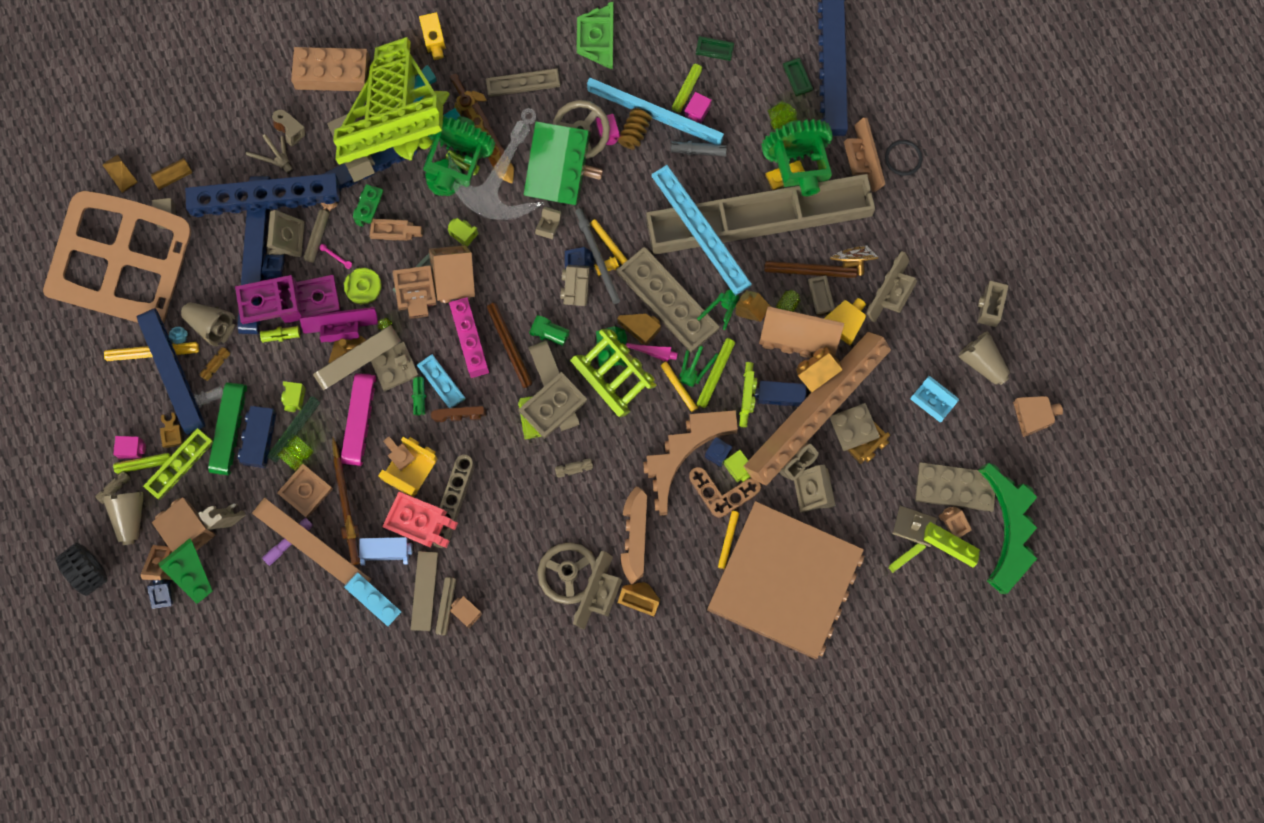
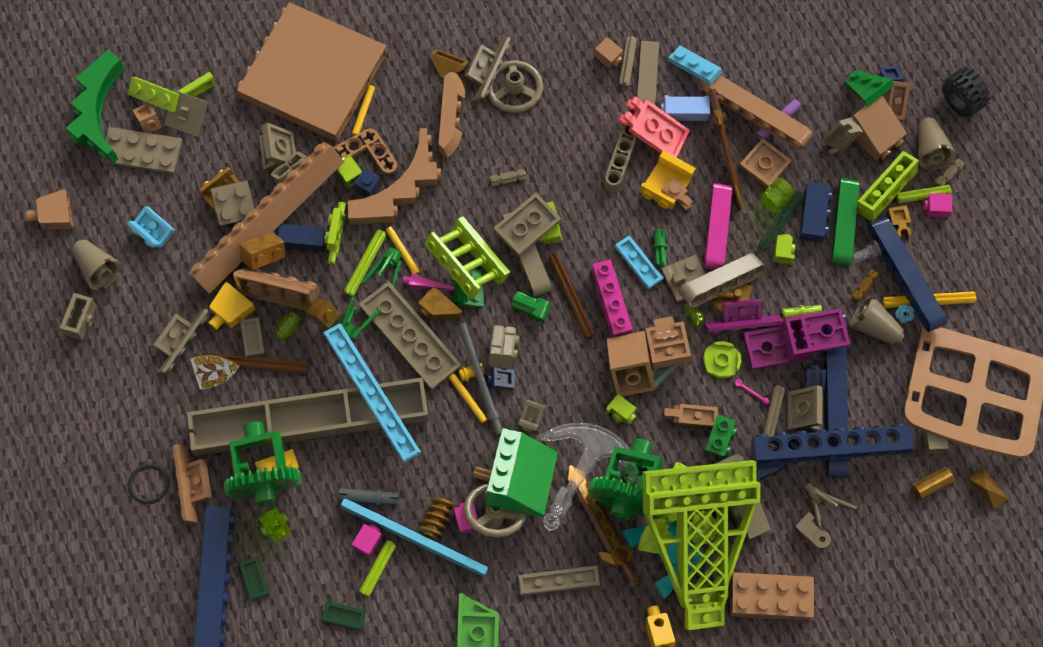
camera: 175 degrees right, 5 degrees down
(456, 414) = (620, 228): reddish brown hinge -> none

